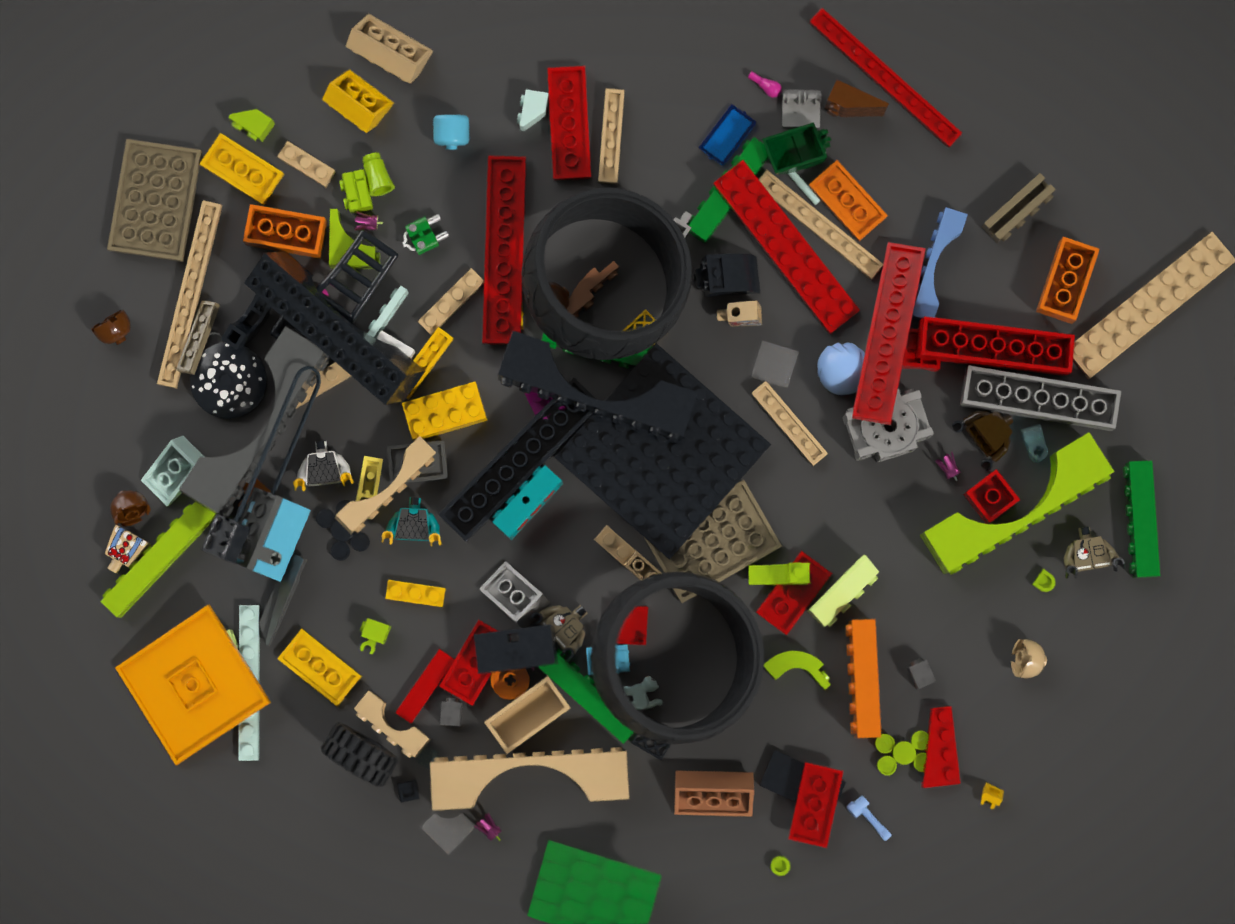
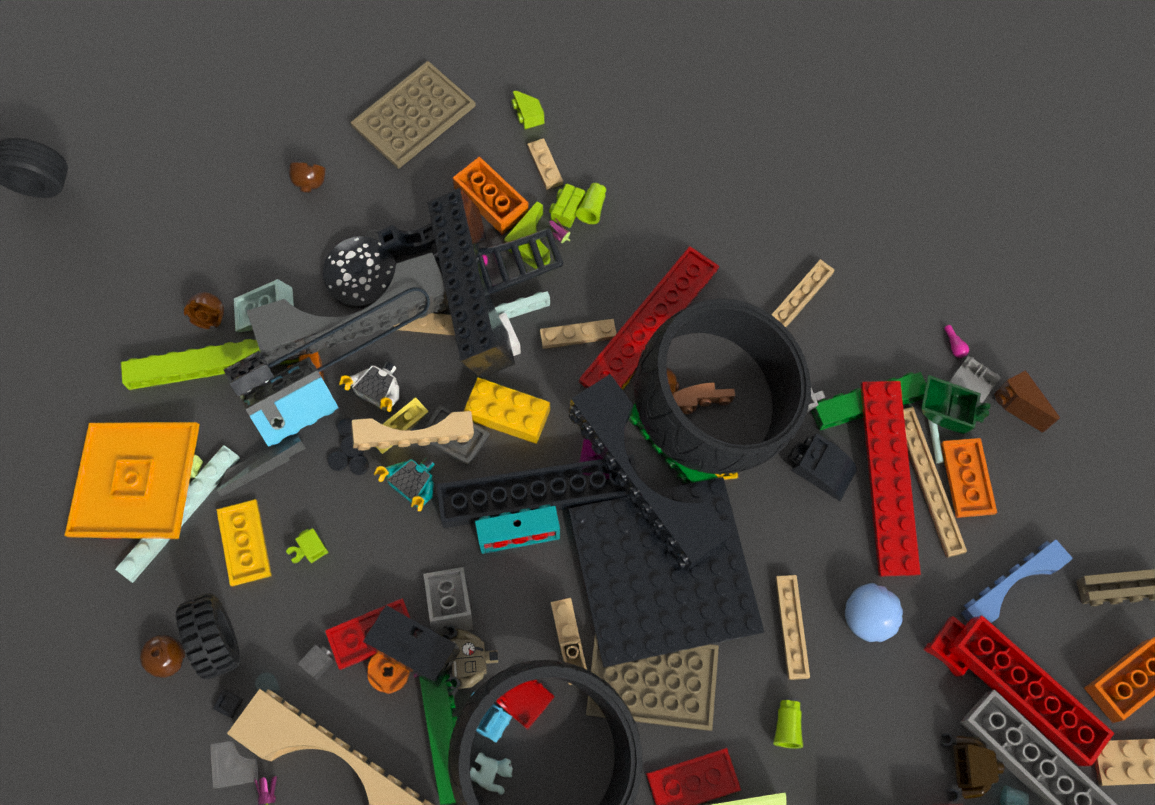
camera: 30 degrees right, 15 degrees down
(124, 548) = (175, 336): torso -> none
(189, 292) = (382, 194): tan plate -> none
(198, 337) = (362, 225): dark tan tile -> none
(241, 169) = (494, 135): yellow plate -> none
(330, 794) = (162, 656): none -> reddish brown cylinder
(357, 100) = (617, 144): yellow slope -> none
(373, 709) = (255, 609): tan arch -> none
(388, 48) = (669, 125): tan slope -> none
(415, 593) = (369, 539): yellow plate -> none
(422, 234) = (593, 269): green piece -> none
(425, 686) = (313, 623): red tile -> none
(431, 354) = (527, 361): yellow plate -> none
(451, 131) = (674, 209): medium azure head -> none
(527, 715) = (377, 713): tan piece -> none
(534, 108) = (751, 237): light aqua slope -> none
(569, 123) = (773, 263): red plate -> none
(727, 135) = (897, 360): clear blue piece -> none
(749, 314) = (814, 504): tan torso -> none
(774, 364) = (813, 568): clear tile -> none
(779, 574) = (697, 757): lime arch -> none
(835, 501) = (789, 725): none -> lime plant
(885, 77) = (1065, 405): red plate -> none
(888, 333) = (934, 611): red plate -> none
(908, 426) = (902, 687): light grey piece -> none
(951, 469) = (917, 776): flat silver piece -> none

